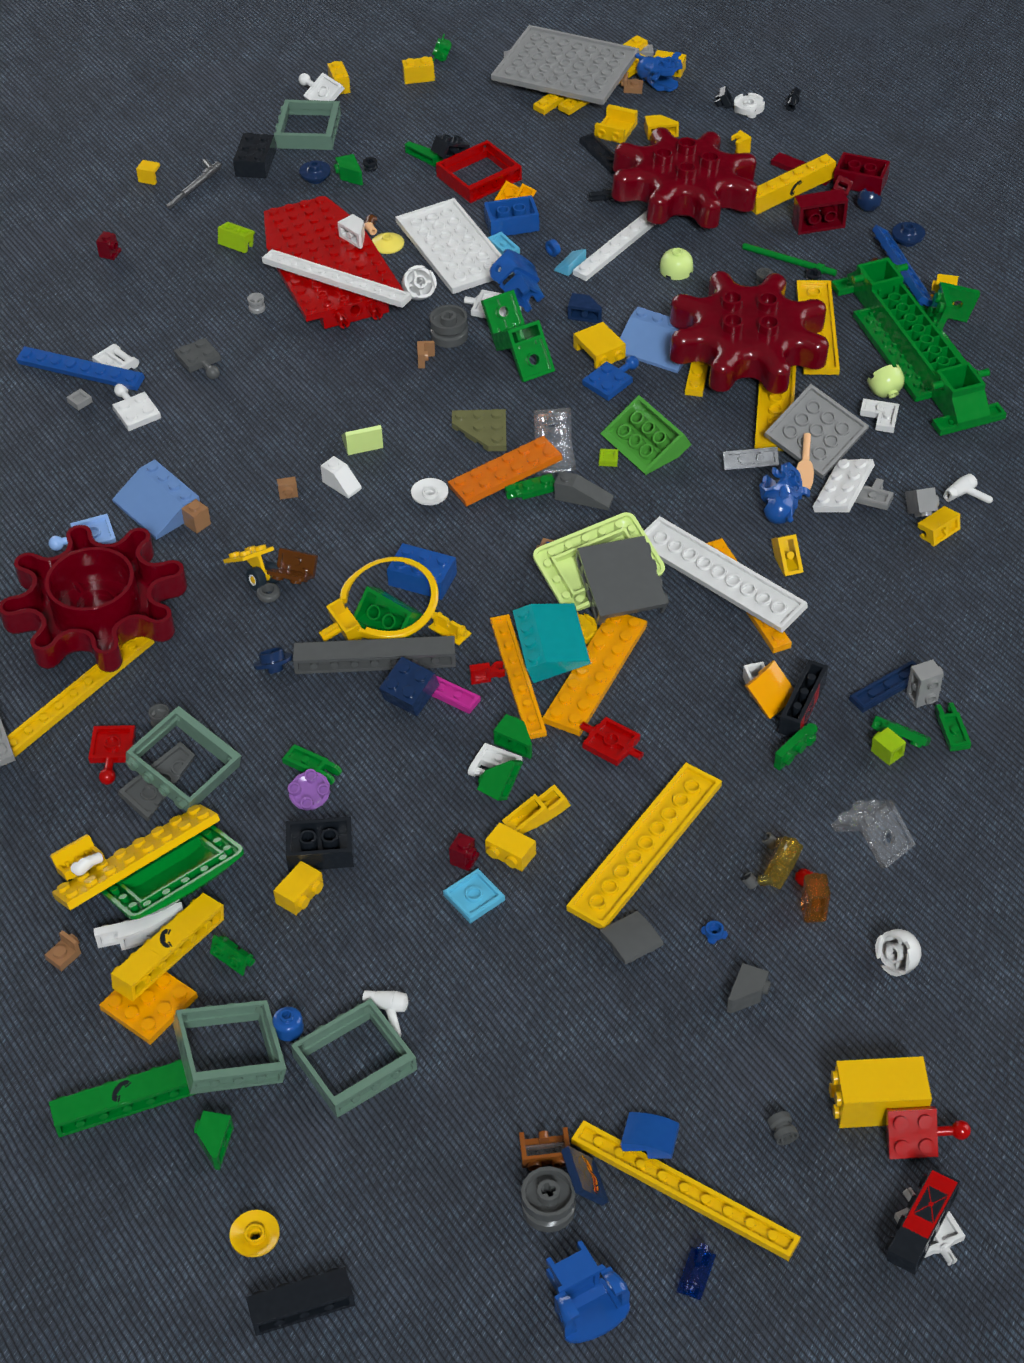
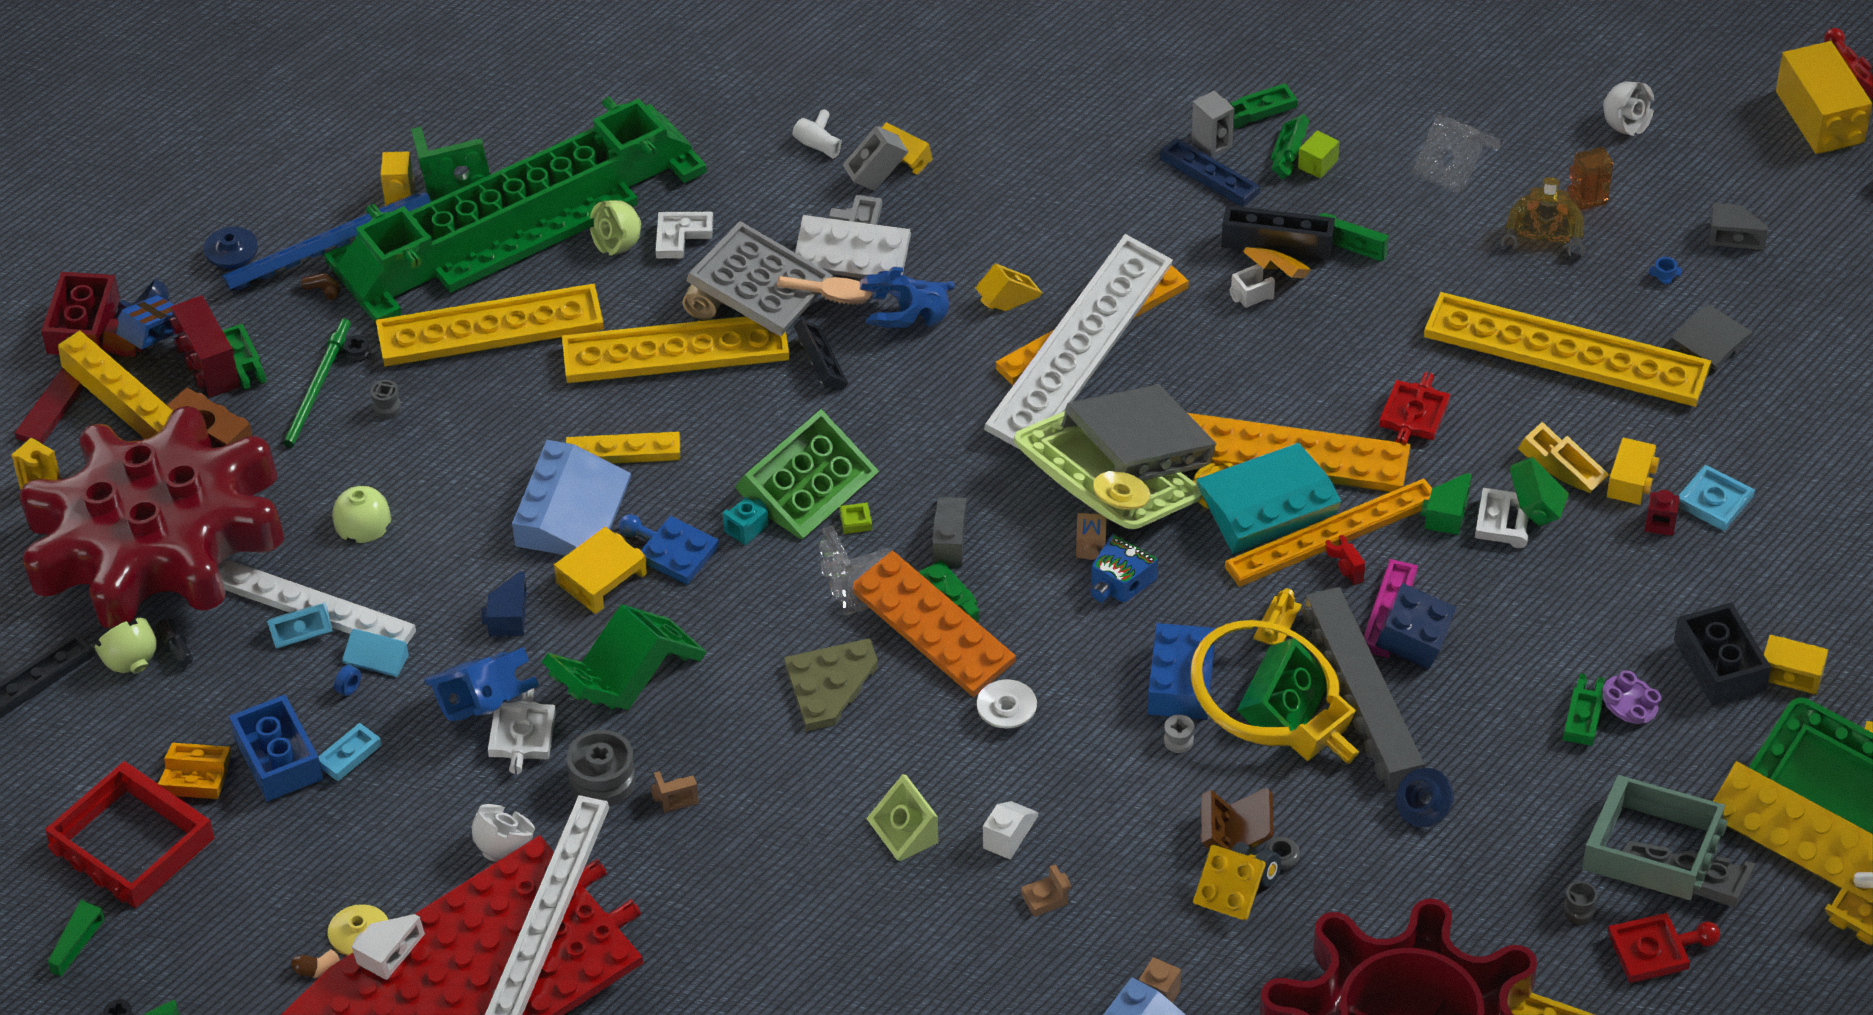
camera: 105 degrees left, 0 degrees up
(378, 569) = (1173, 738): none -> light grey wheel
(448, 146) = (73, 882): black brick -> none
(451, 244) = (358, 824): white plate -> none
(515, 561) = (1121, 571): none -> blue torso
(561, 540) = (1121, 490): none -> light yellow dish
(600, 174) = (128, 647): none -> yellowish green cylinder
(600, 234) = (300, 625): none -> medium azure slope
(615, 404) = (746, 520): none -> teal brick
(748, 332) = (571, 366): dark red brick -> none
(755, 221) = (222, 425): none -> dark orange arch
(817, 232) = (245, 355): none -> green hinge
(840, 180) = (146, 322): none -> blue brick

